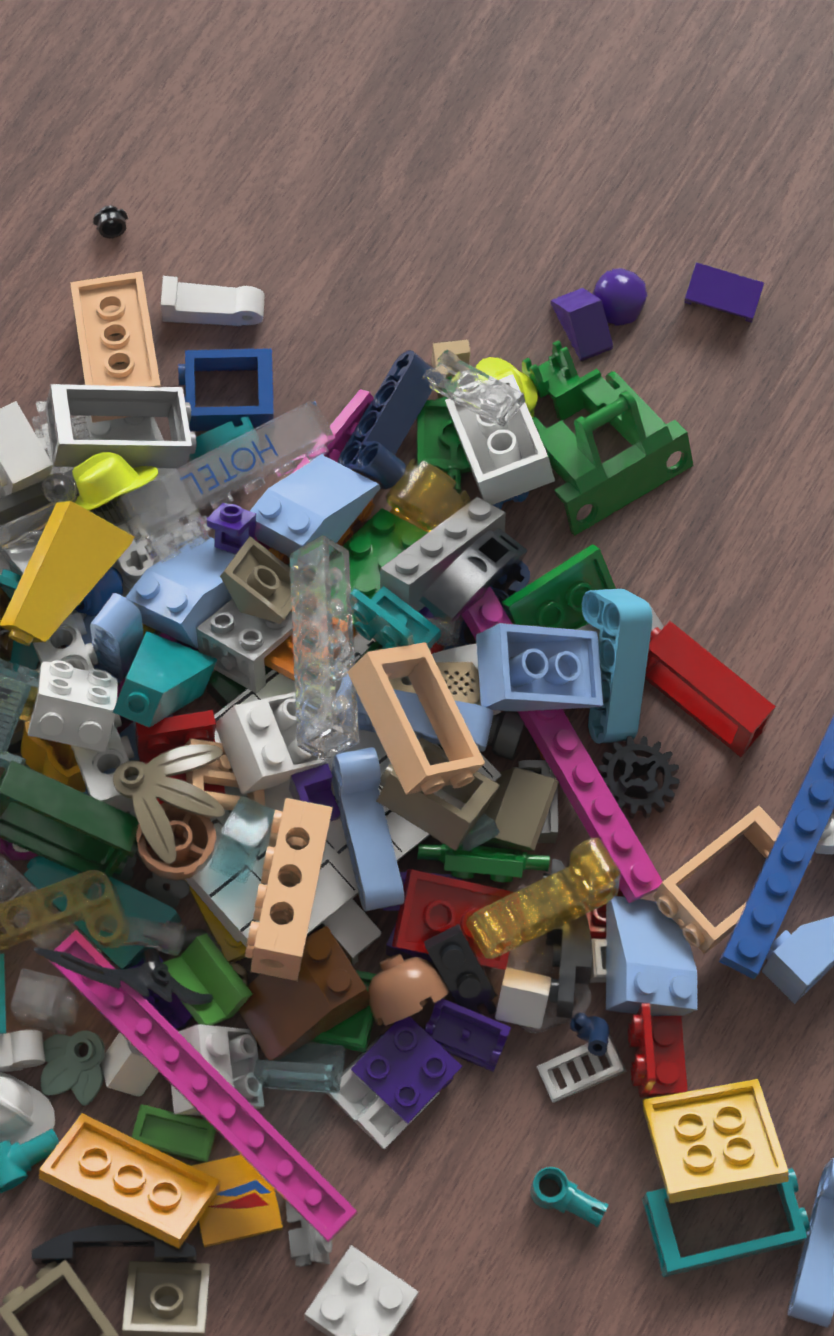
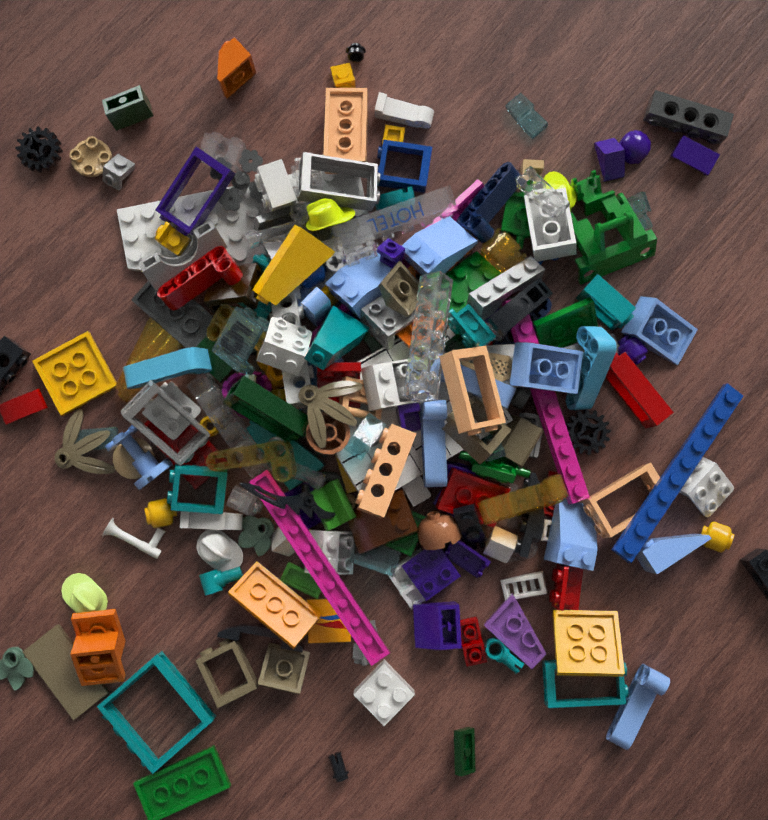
camera: 15 degrees right, 15 degrees up
(95, 261) = (343, 76): none -> yellow bracket
(200, 339) = (393, 133): none -> yellow tile
(422, 276) = (524, 114): none -> clear light blue slope
(436, 1163) = (437, 625): none -> dark purple slope
(506, 1186) = (472, 642): none -> red slope
(580, 1147) = (514, 630): none -> medium lavender wing
(592, 1030) = (535, 570): dark blue arm -> none
(632, 554) = (609, 304): none -> teal window
(651, 390) = (641, 206): none -> clear light blue plate
(689, 619) = (634, 348): none -> dark purple head
(715, 225) = (719, 120): none -> dark grey brick
(726, 583) = (660, 329): none -> light blue slope

